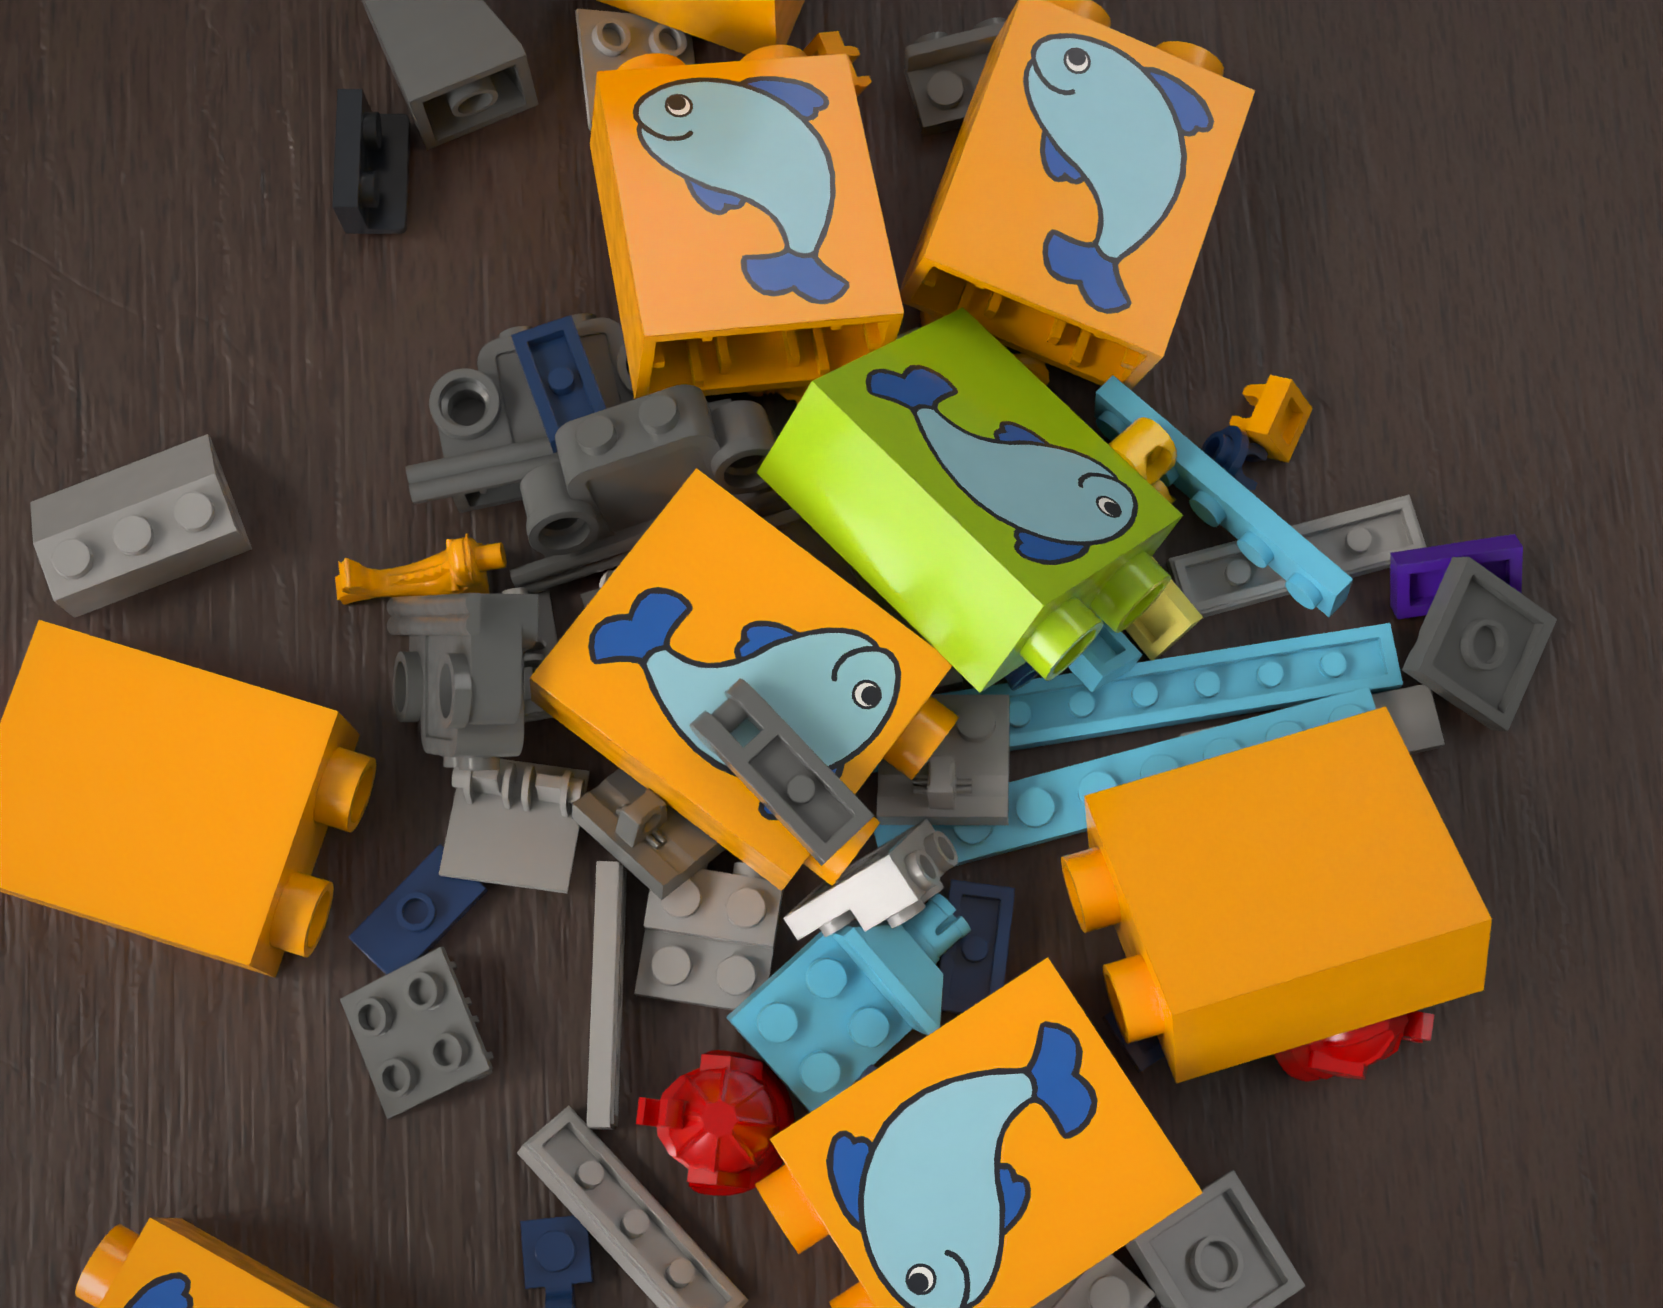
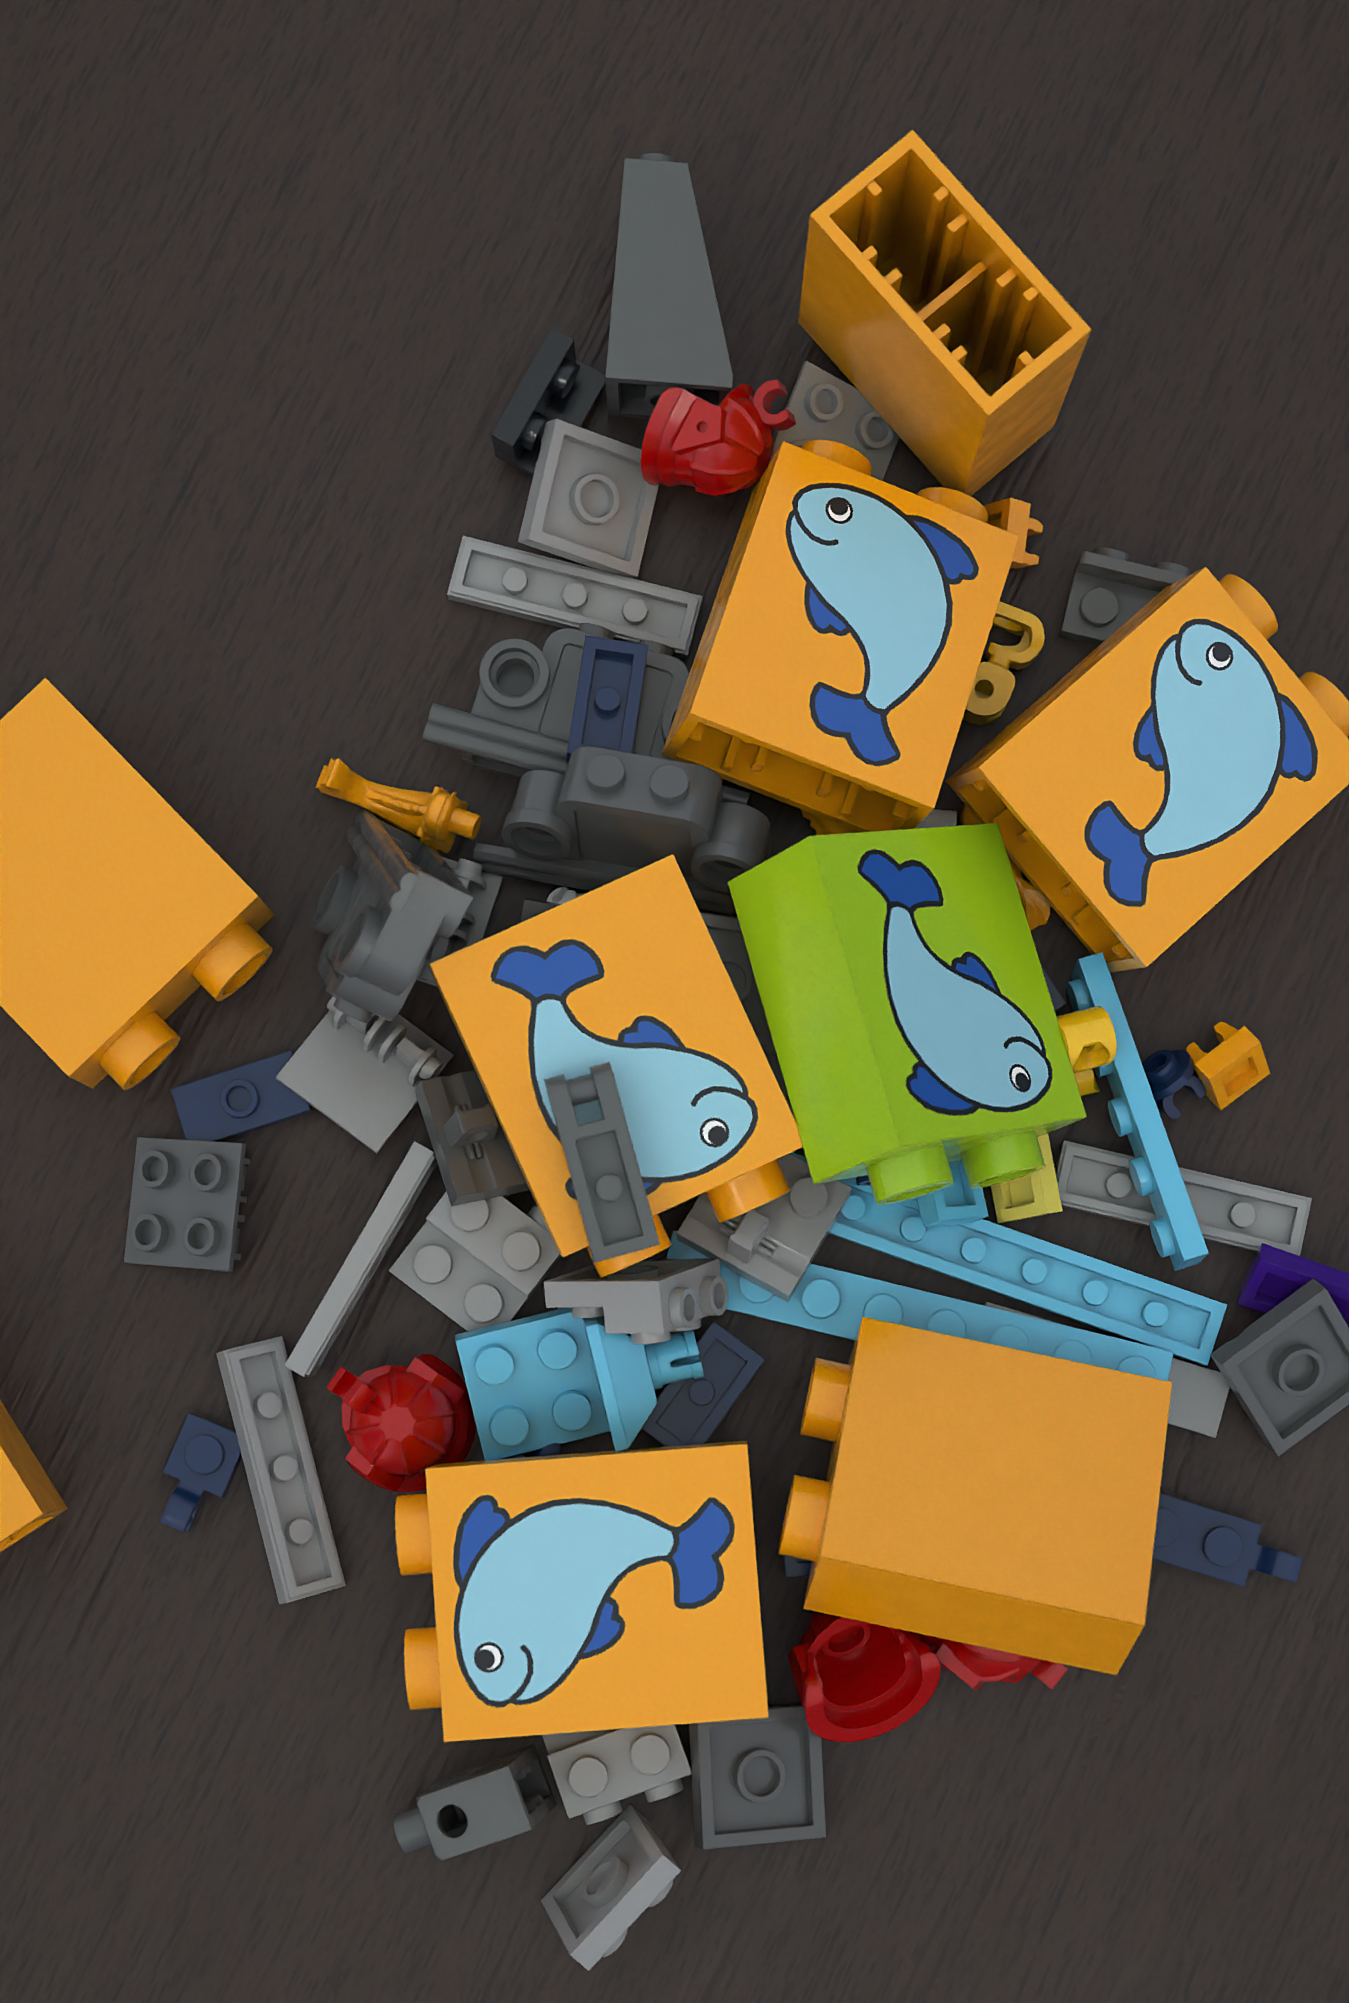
camera: 30 degrees right, 5 degrees up
(137, 527) = (177, 627): light grey slope -> none
(451, 222) = (588, 500): none -> light grey hinge
(469, 318) = (572, 594): none -> light grey tile
(531, 114) = (711, 444): none -> red helmet
(889, 176) = (993, 679): none -> yellow leg
(1257, 1120) = (860, 1677): none -> red helmet
(1508, 834) = (1216, 1544): none -> dark blue plate

